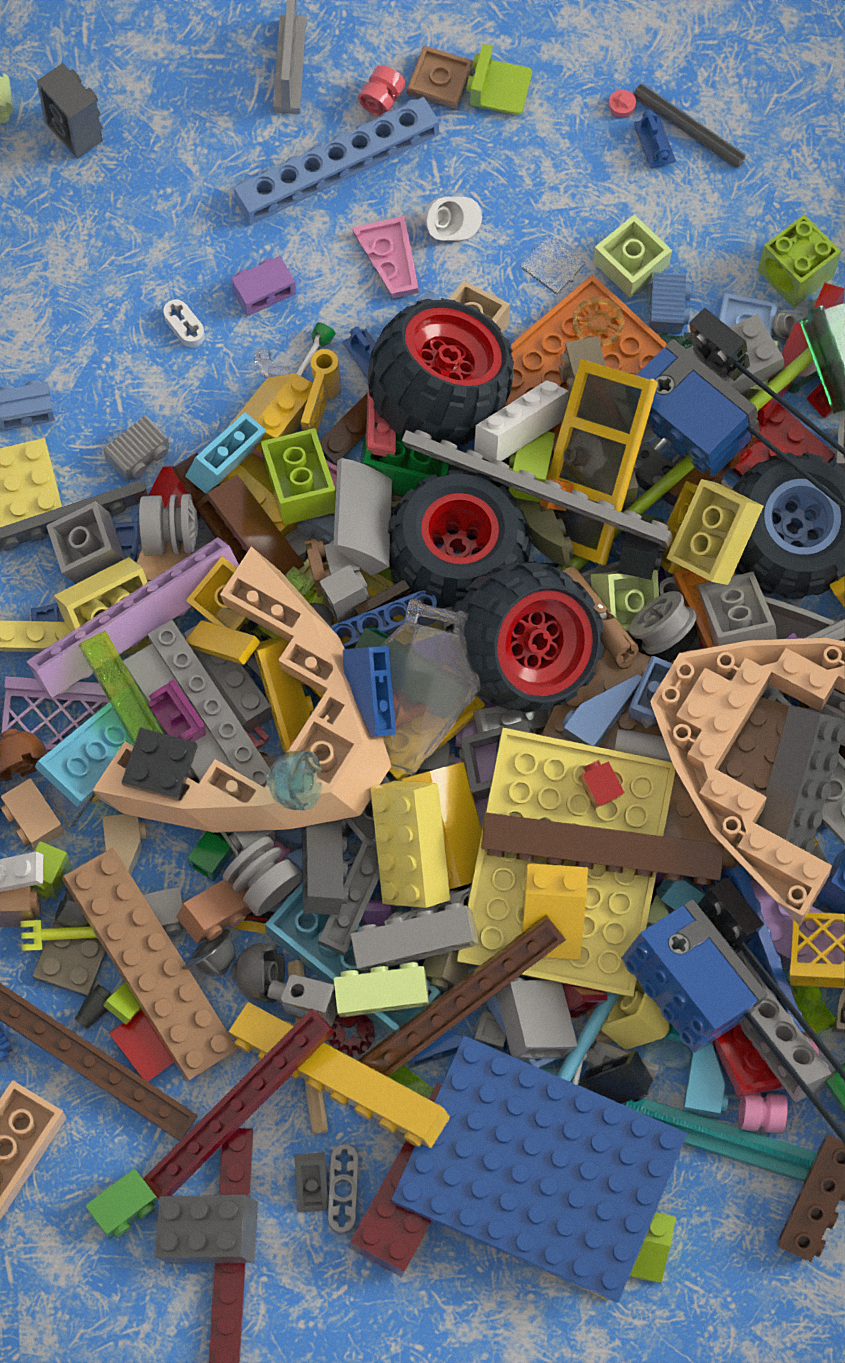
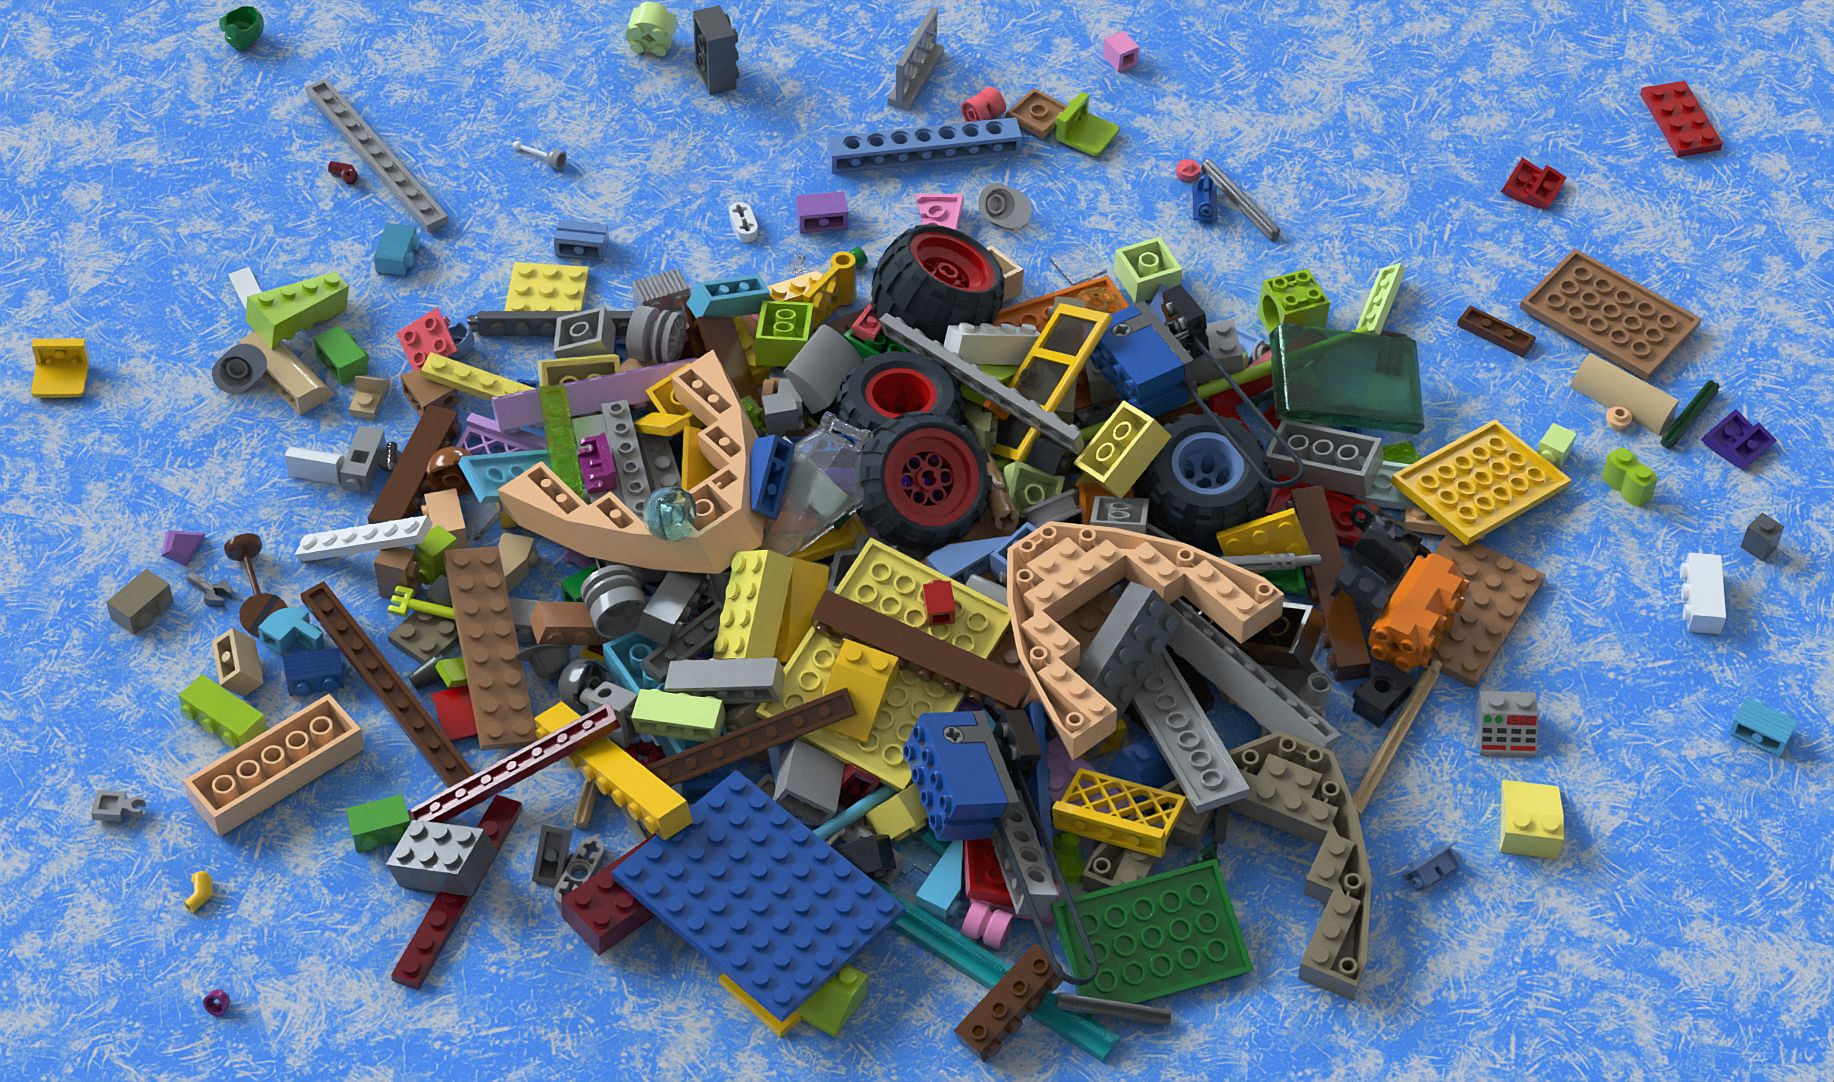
camera: 20 degrees right, 20 degrees down
(159, 764) = (561, 482): black plate -> none

